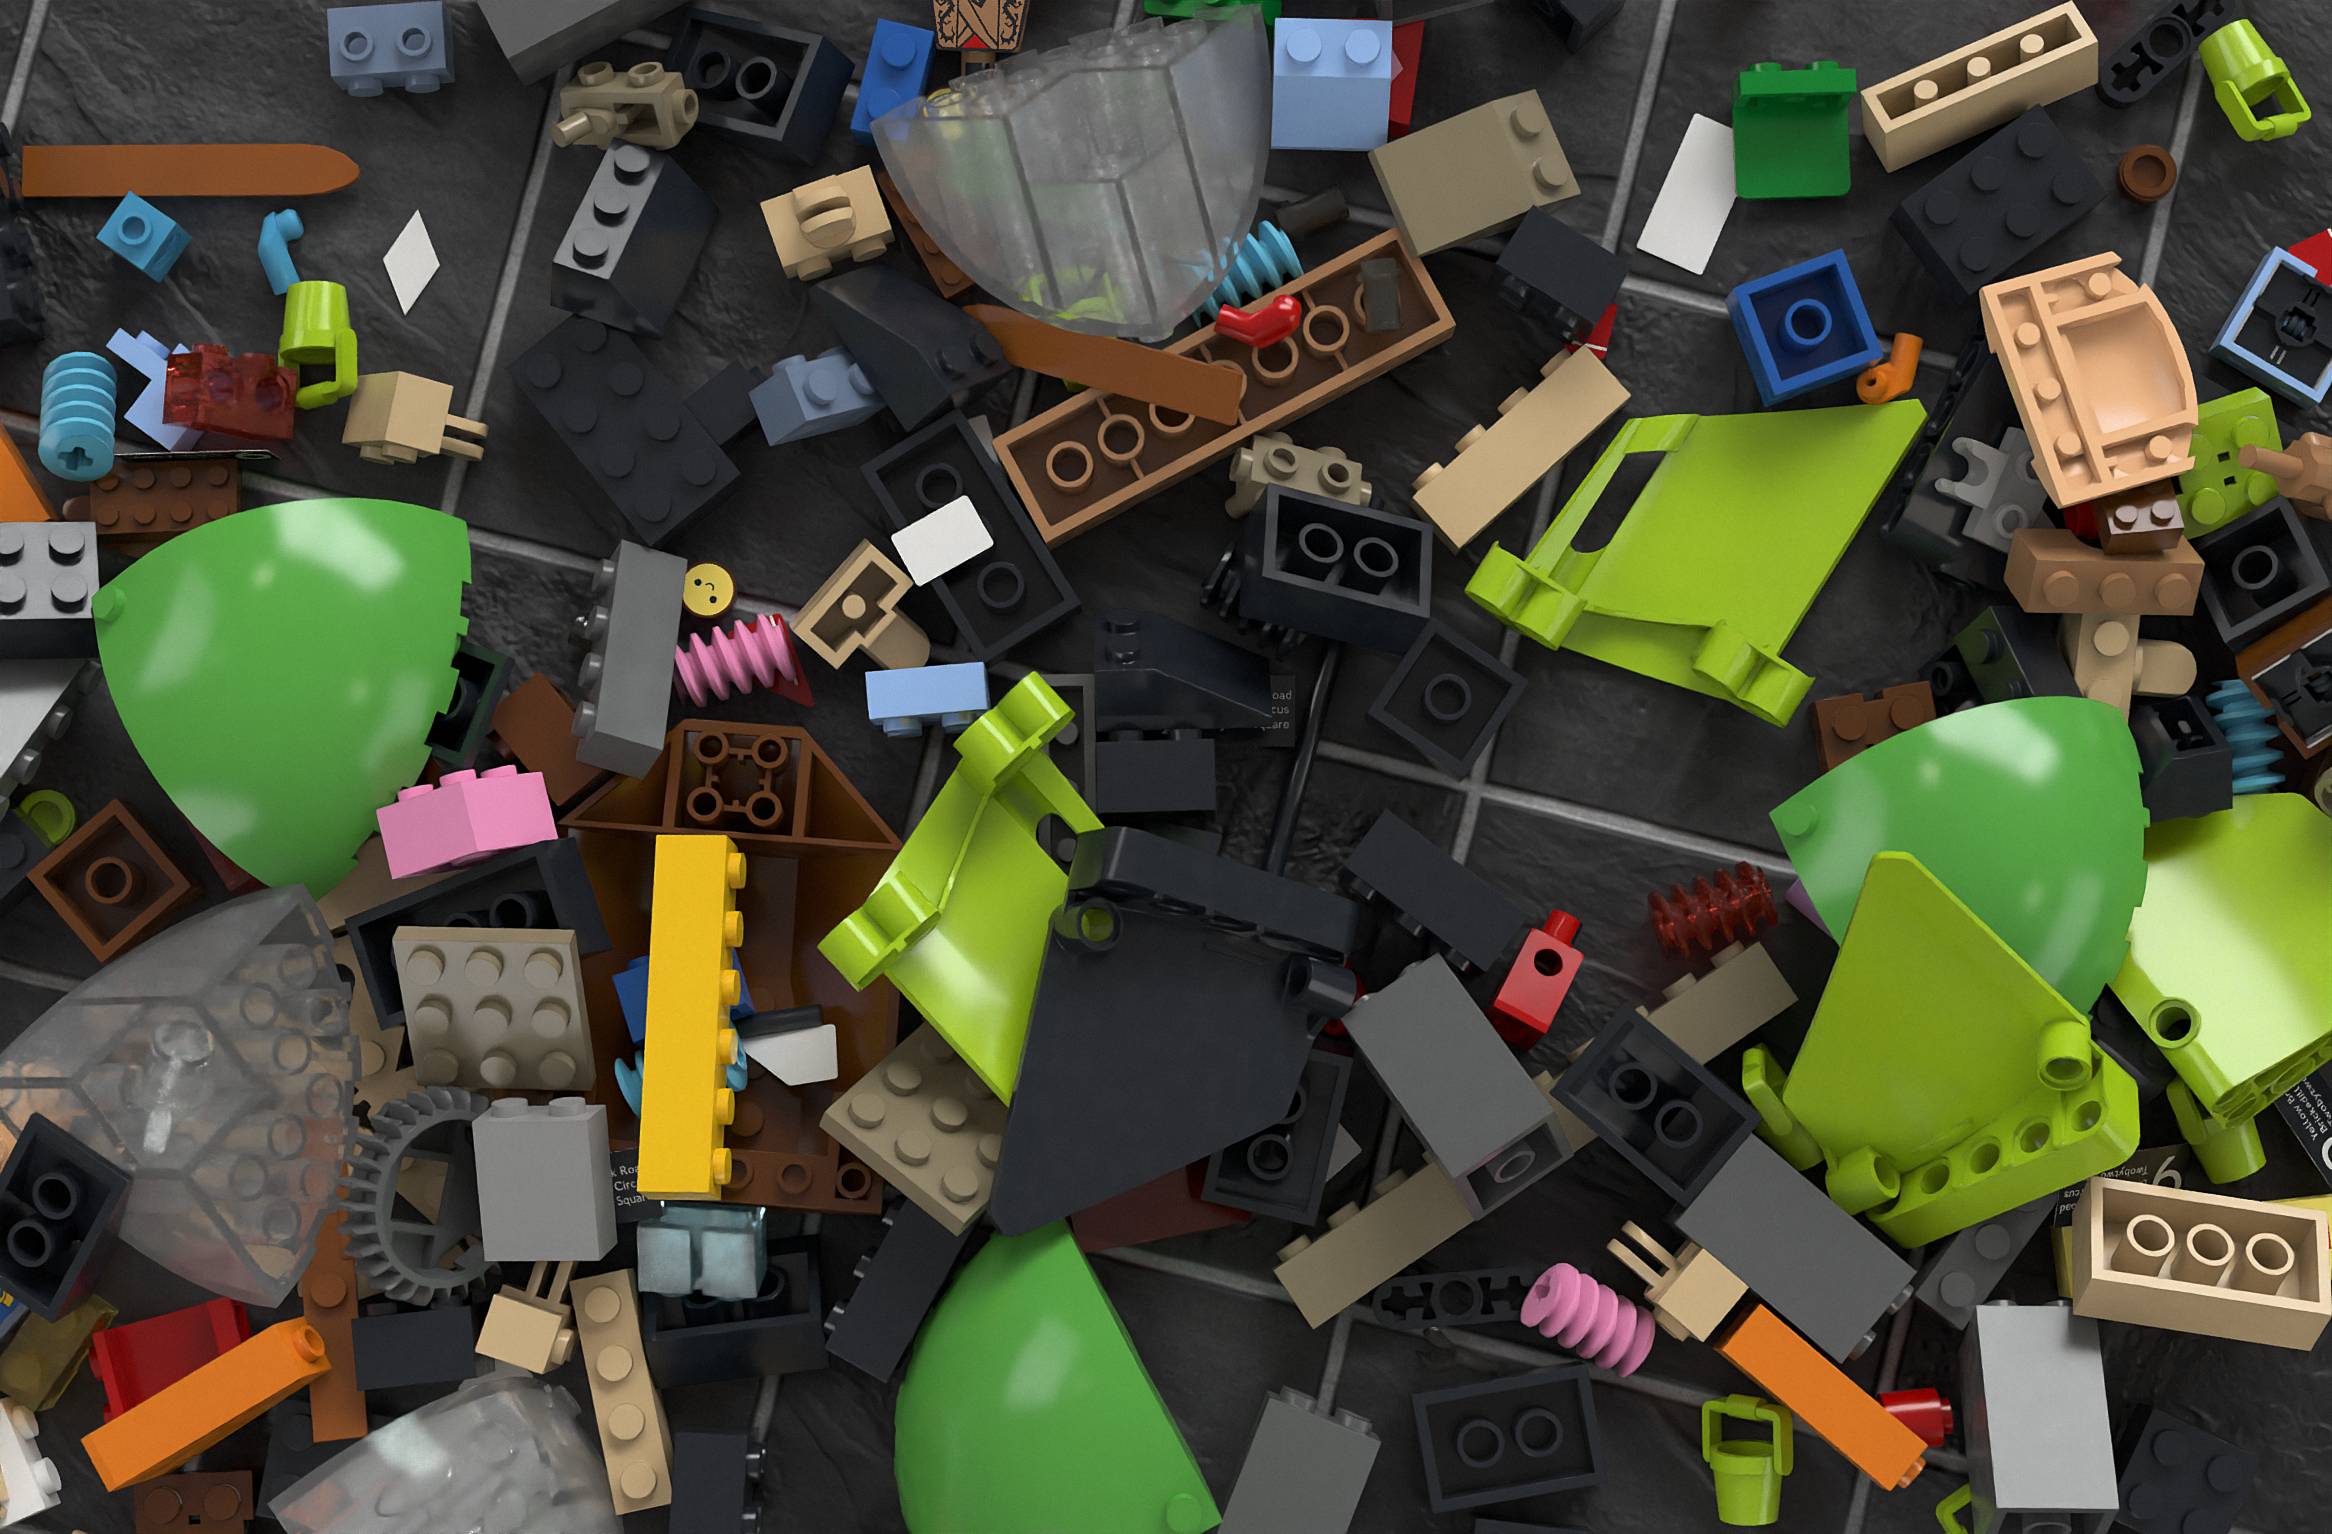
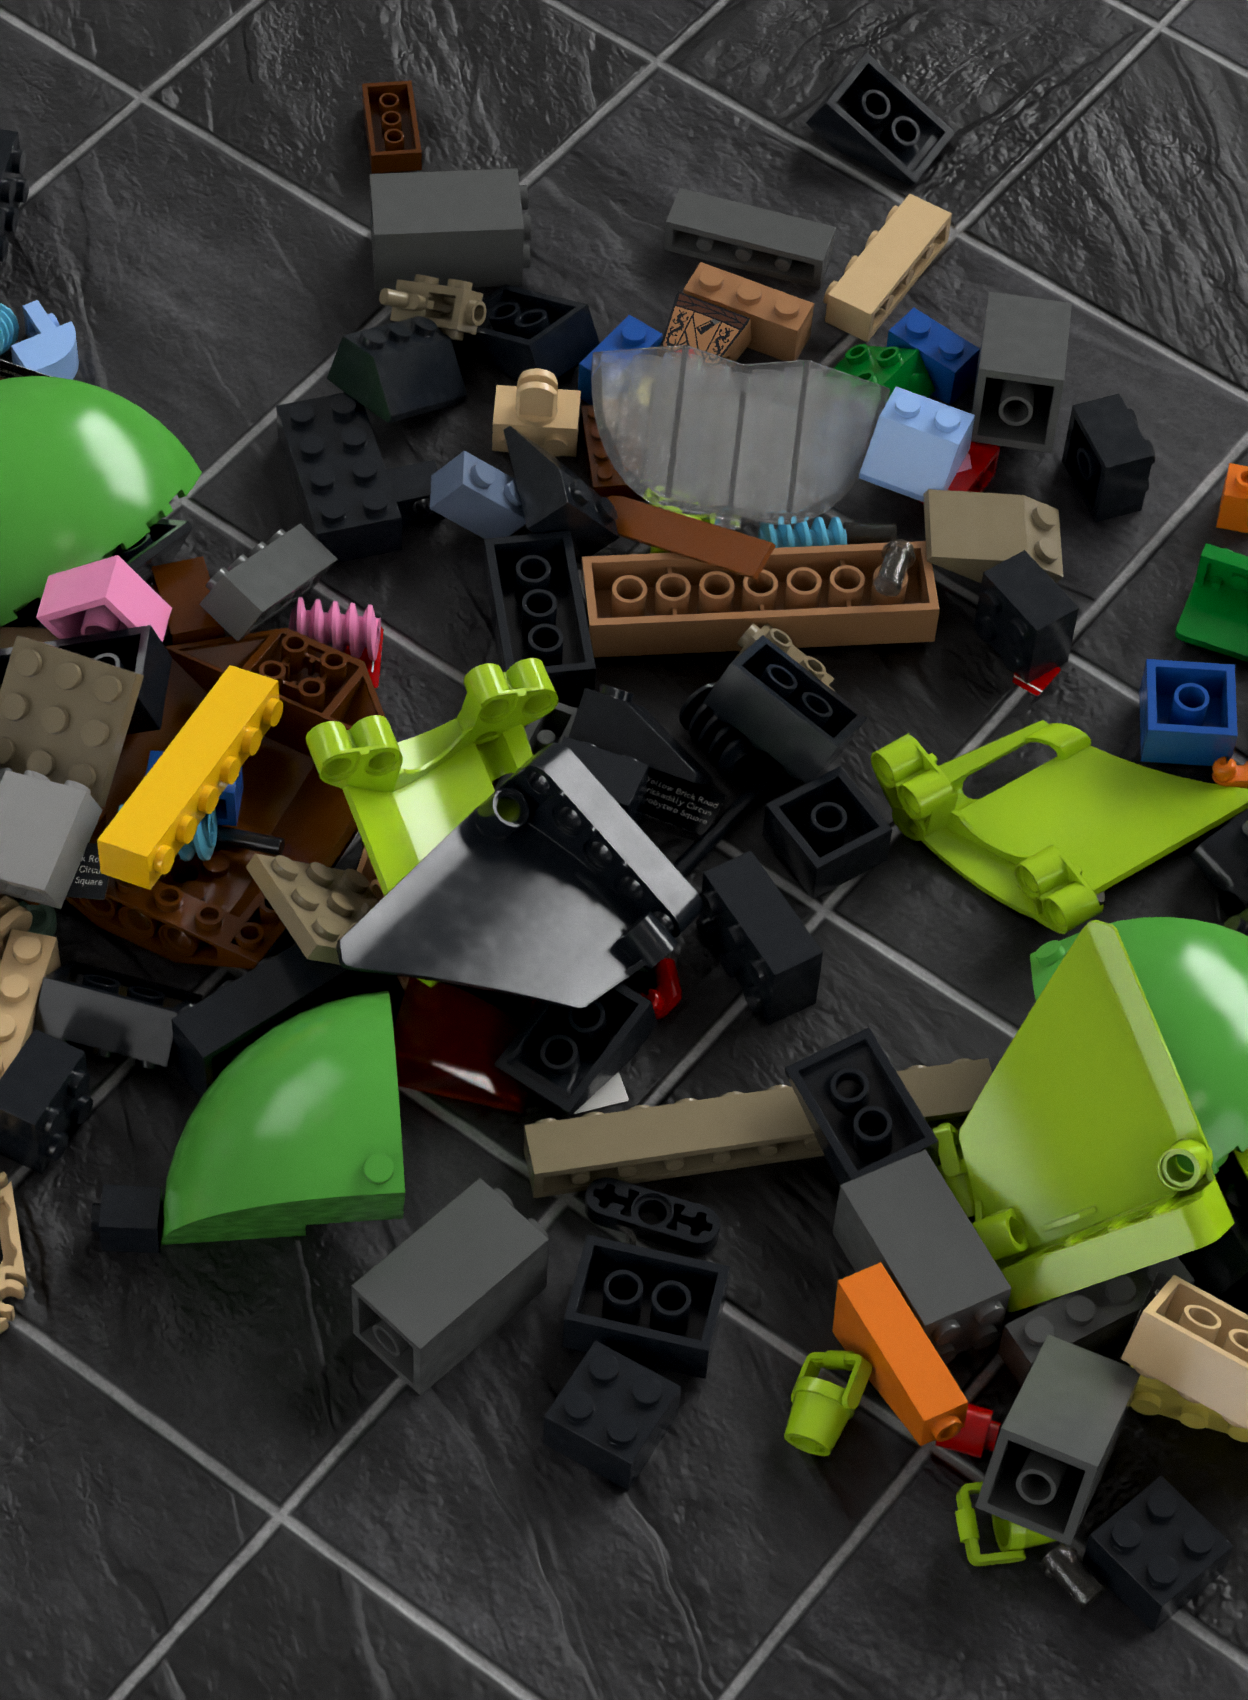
camera: 20 degrees right, 30 degrees down
(144, 237) = (82, 268): dark azure brick -> none
(185, 170) = (129, 250): dark orange piece -> none
(230, 394) = (85, 352): clear red brick -> none
(273, 248) = (162, 307): dark azure arm -> none
(319, 334) = (158, 359): lime piece -> none
(391, 47) = (298, 232): sand blue brick -> none
(404, 418) = (195, 414): tan brick -> none
(411, 262) = (246, 352): white sticker -> none
(703, 1249) = (118, 944): clear light blue piece -> none
(709, 590) = (342, 588): light yellow tile -> none
(797, 1054) = (240, 856): white sticker -> none
(861, 612) = (439, 630): tan brick -> none
(925, 696) = (440, 678): light blue piece -> none
(942, 540) = (518, 597): white sticker -> none
(1263, 327) = (804, 555): red arm -> none
(1457, 1085) = (719, 1045): dark grey brick -> none
(1519, 448) = (956, 711): tan brick -> none
(1524, 997) = (803, 1024): red torso -> none
(1590, 1319) = (745, 1251): bright pink piece -> none
(1688, 1291) = (825, 1250): tan brick -> none
(1693, 198) = (1143, 629): white sticker -> none
(1711, 908) = (961, 1033): clear red piece -> none

